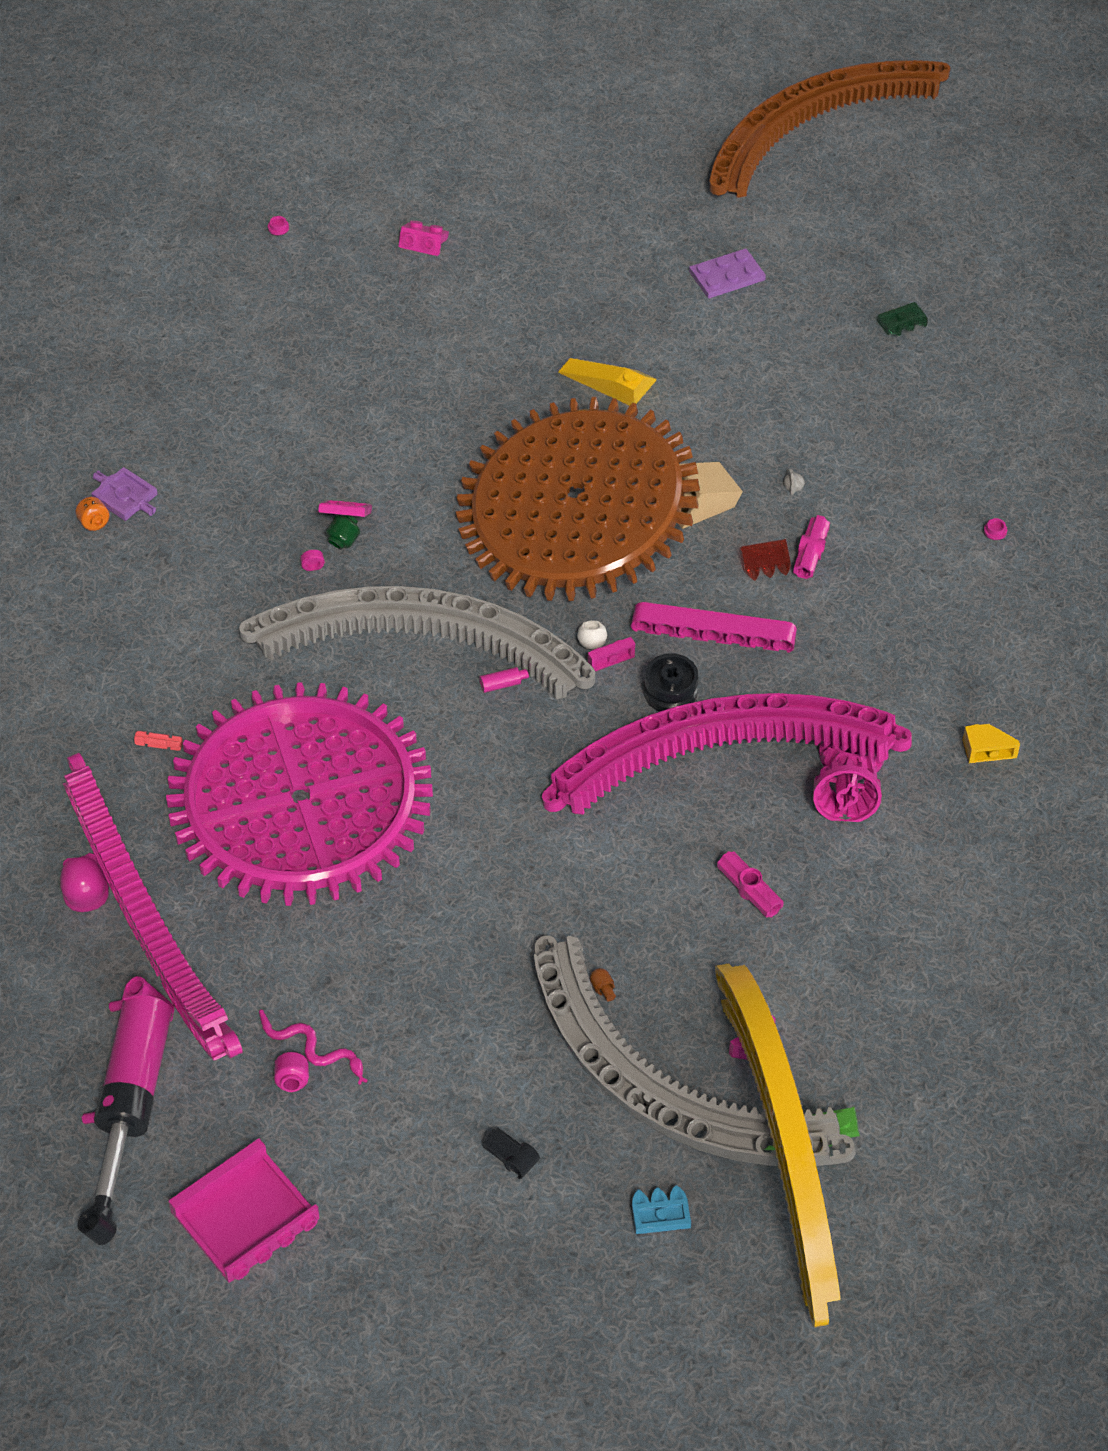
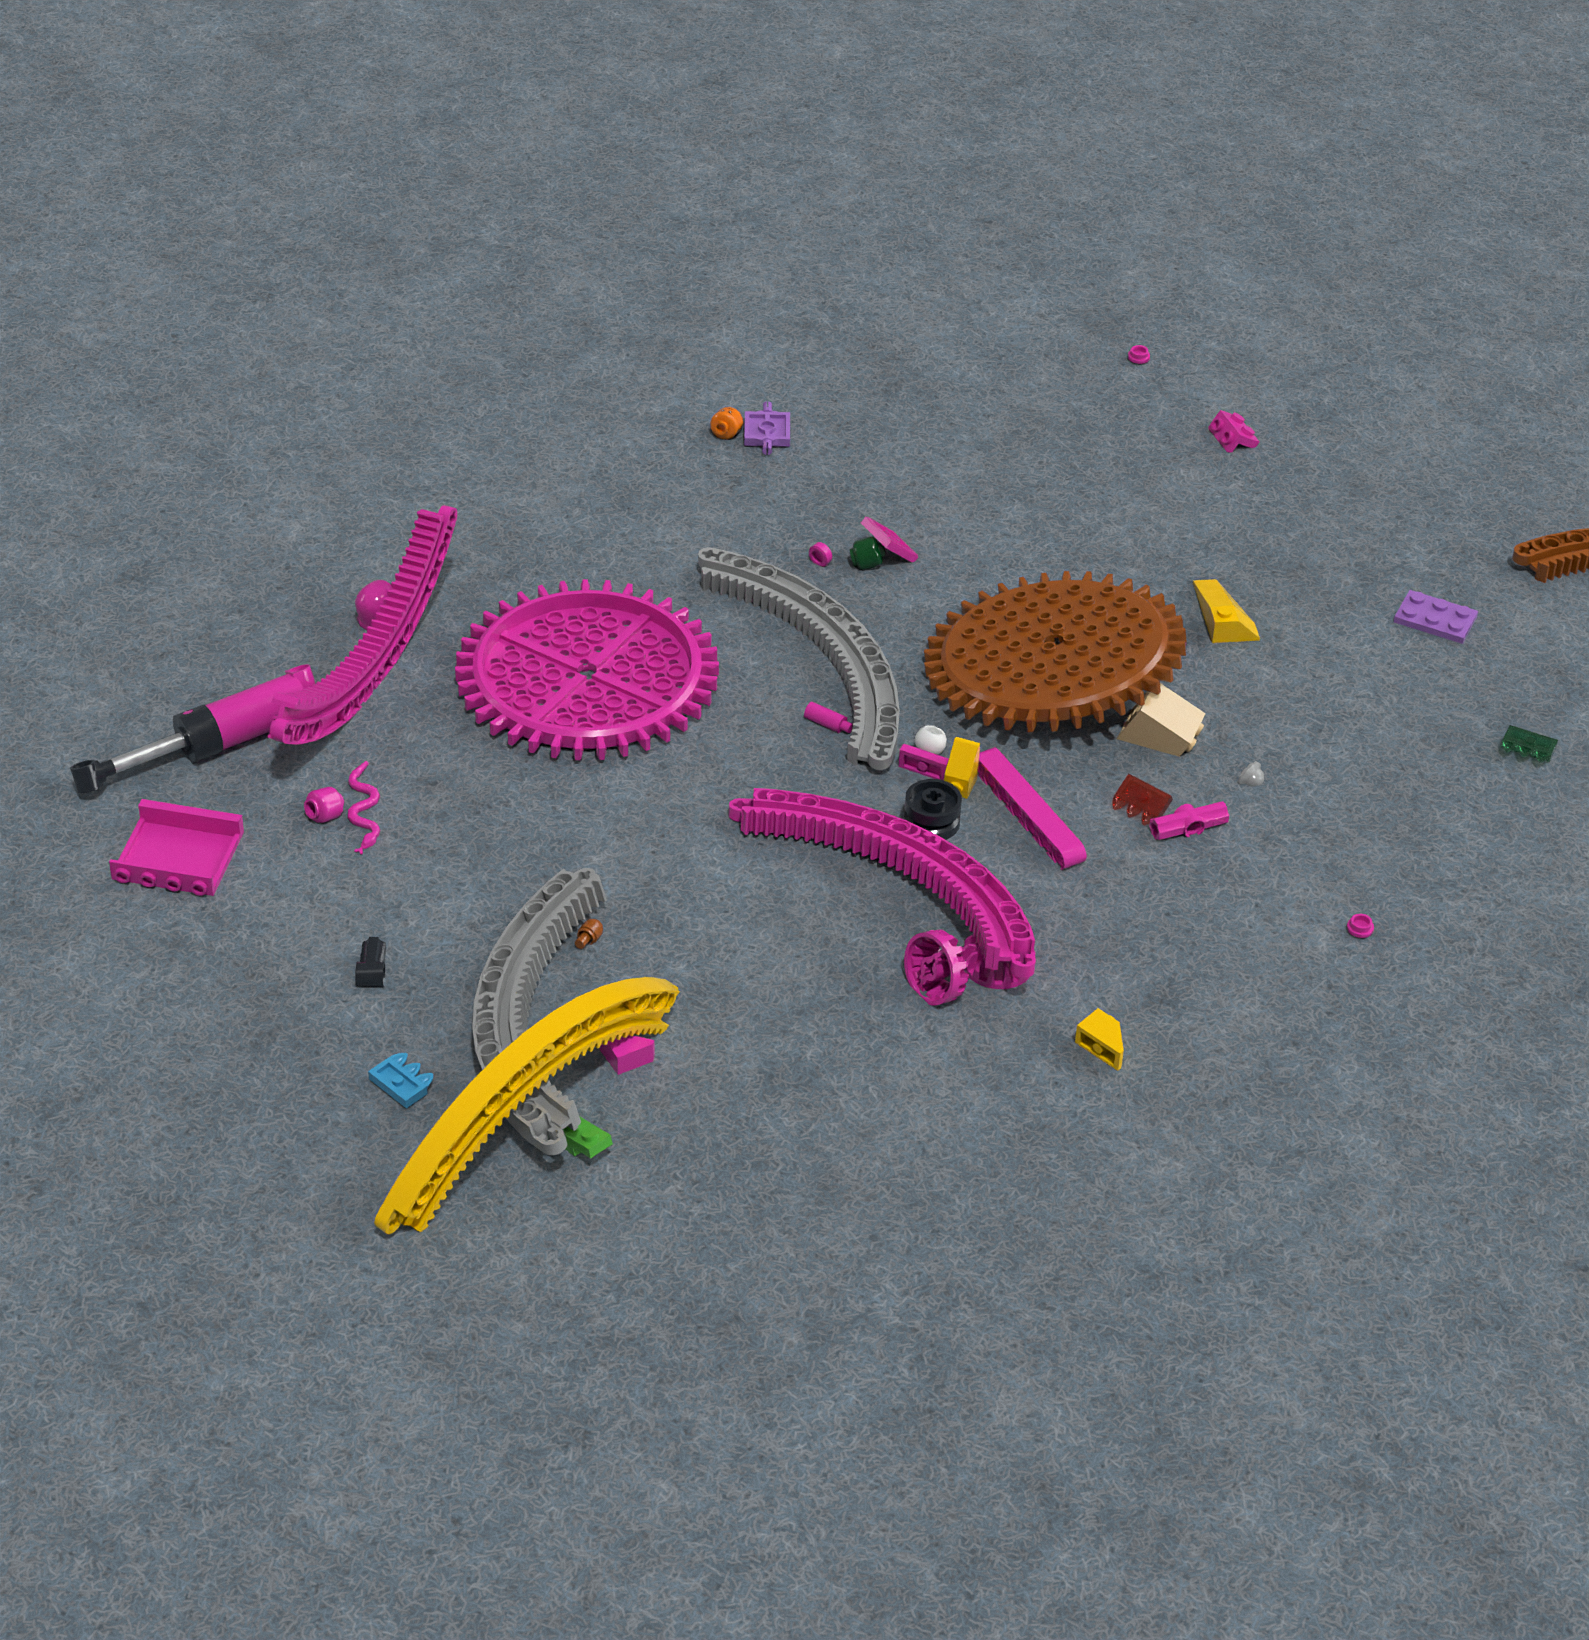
camera: 50 degrees right, 10 degrees down
(158, 740) = (555, 573): coral axle -> none
(647, 636) = (963, 765): none -> yellow slope
(741, 876) = (780, 965): dark pink piece -> none

